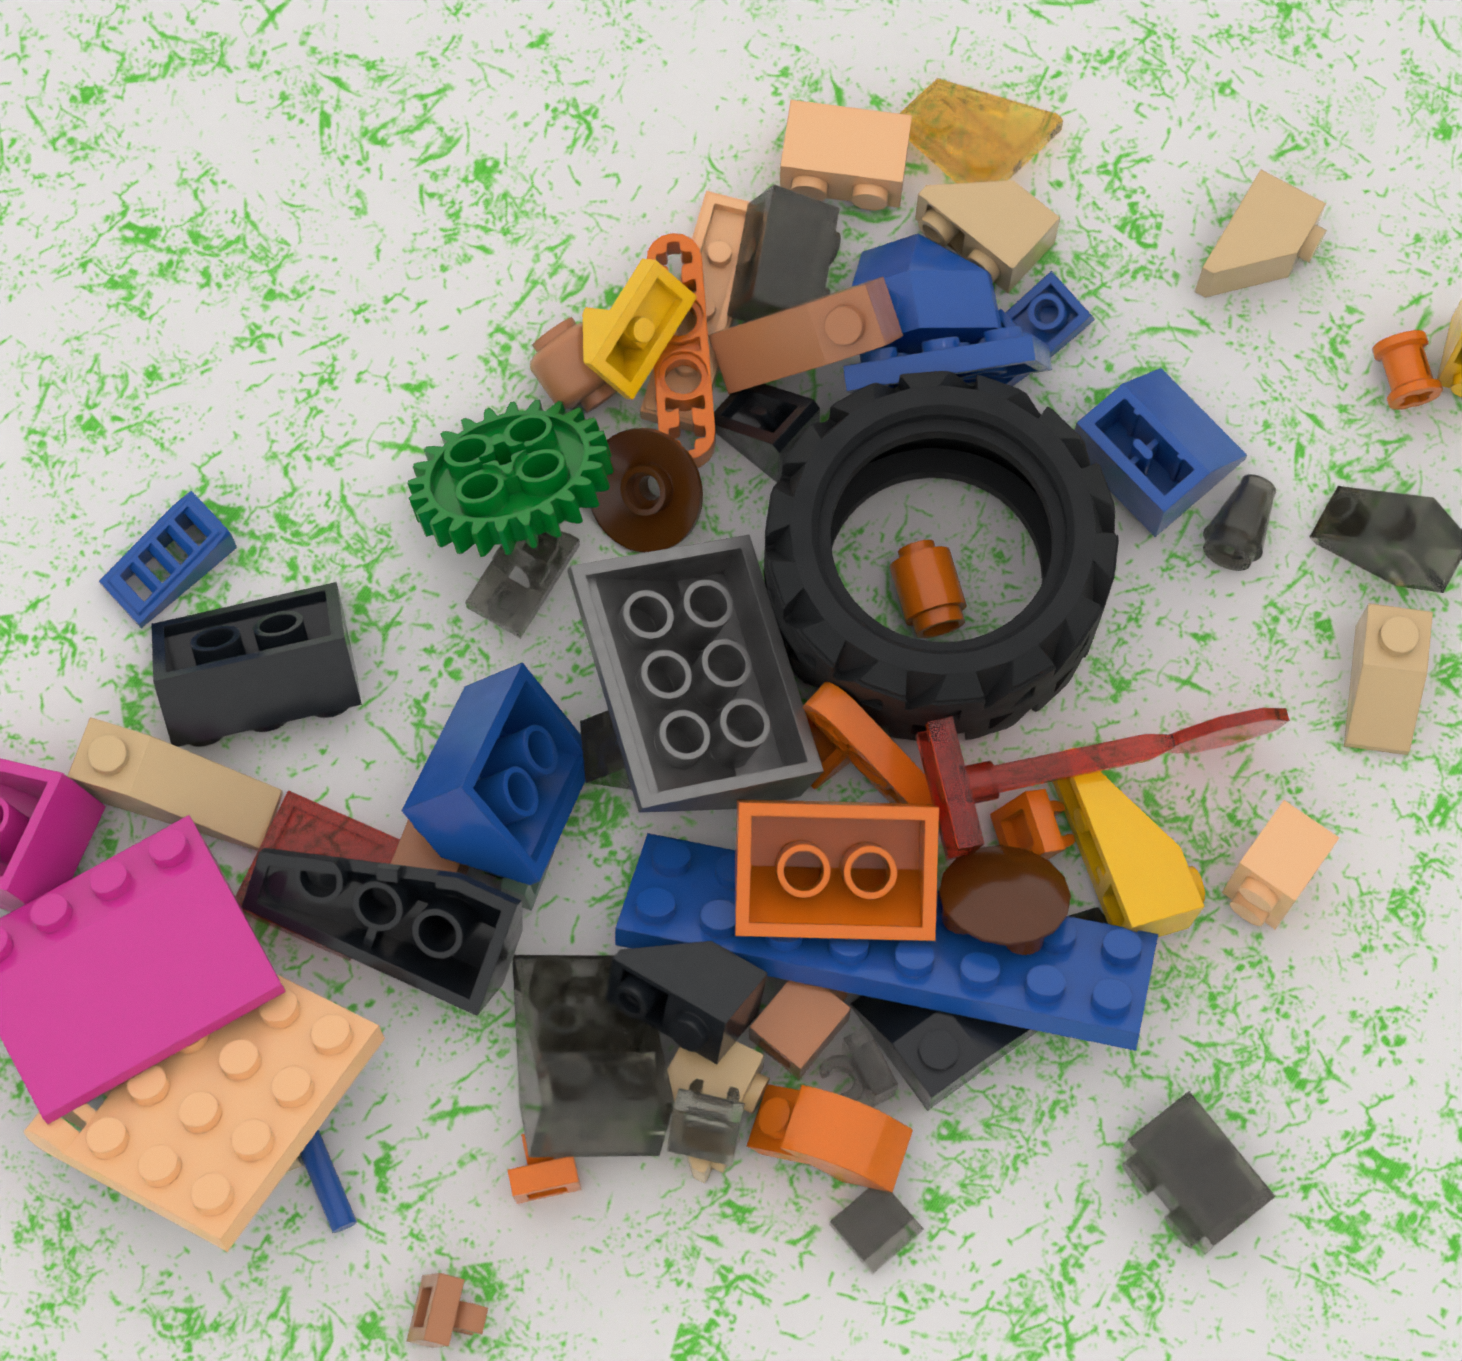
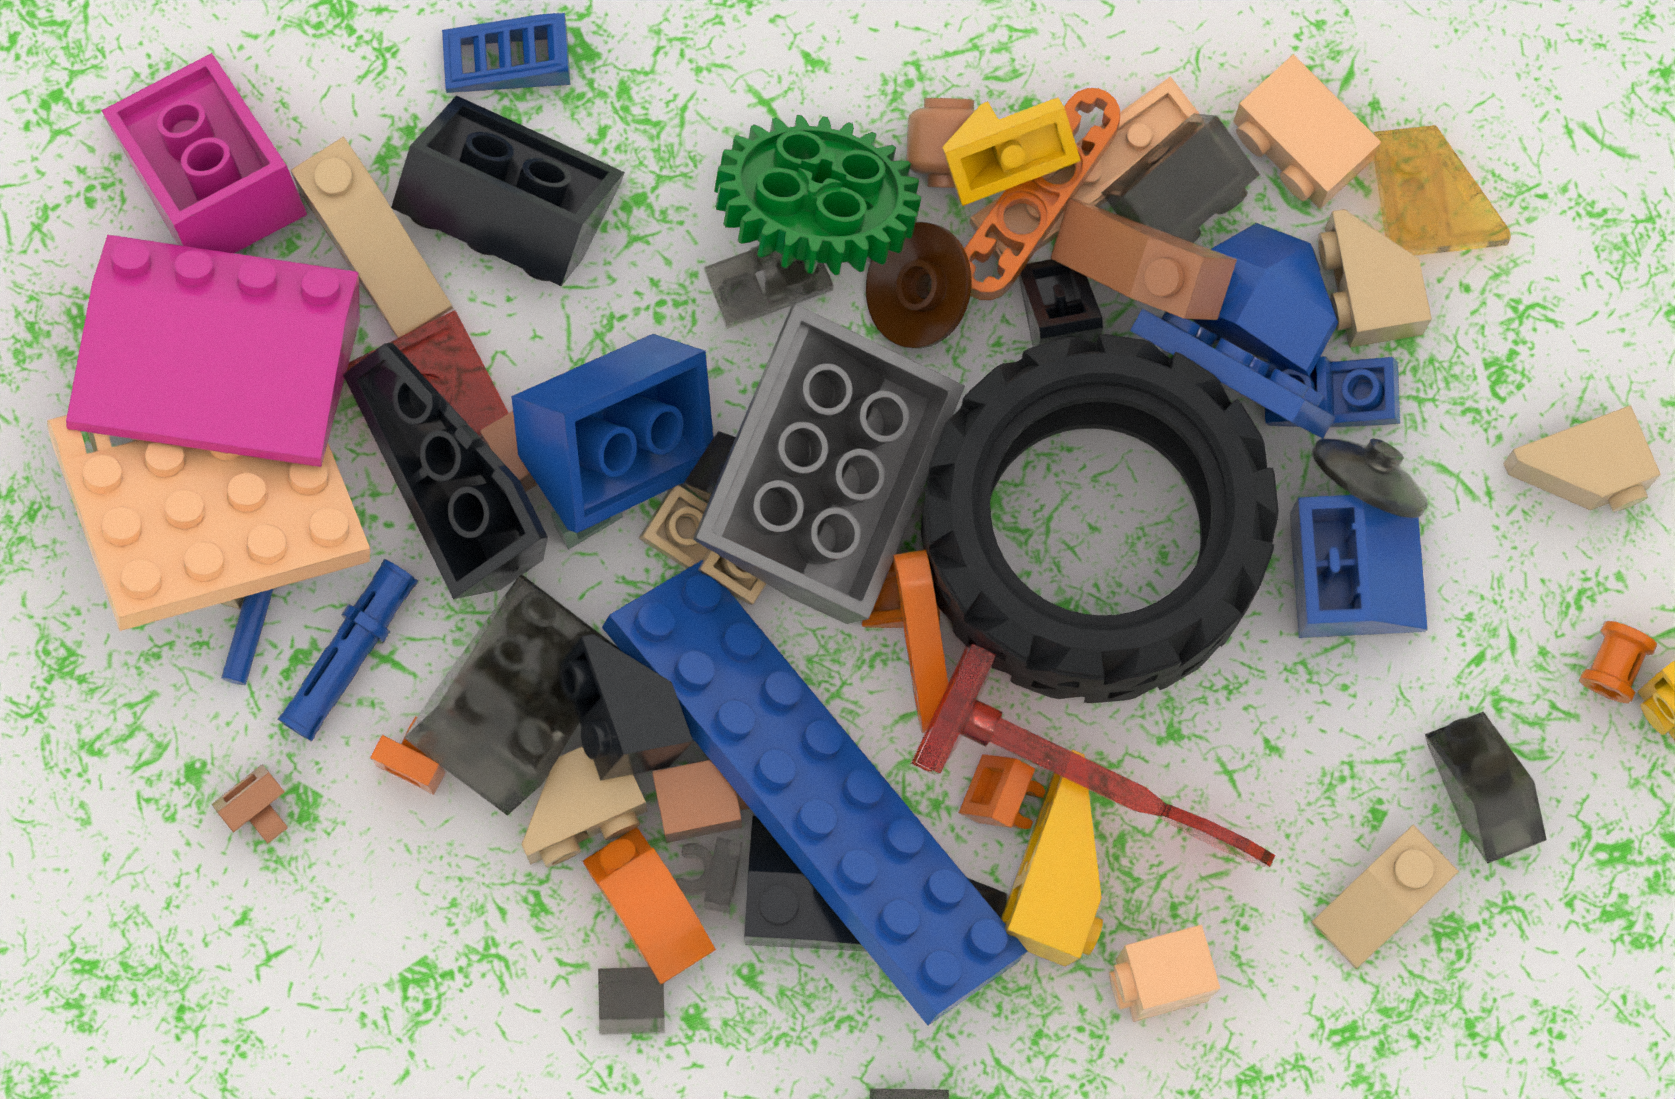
camera: 35 degrees right, 5 degrees up
(421, 1142) = (355, 639): none -> blue pin
(613, 826) = (672, 534): none -> tan slope
(706, 1124) = (553, 819): clear smoke tile -> none
(836, 869) = (812, 701): orange slope -> none
(928, 588) = (1079, 538): orange brick -> none
(1004, 897) = (928, 827): reddish brown dish -> none
(1112, 365) = (1371, 474): none -> clear smoke dish
(1240, 524) = (1374, 681): clear smoke cone -> none

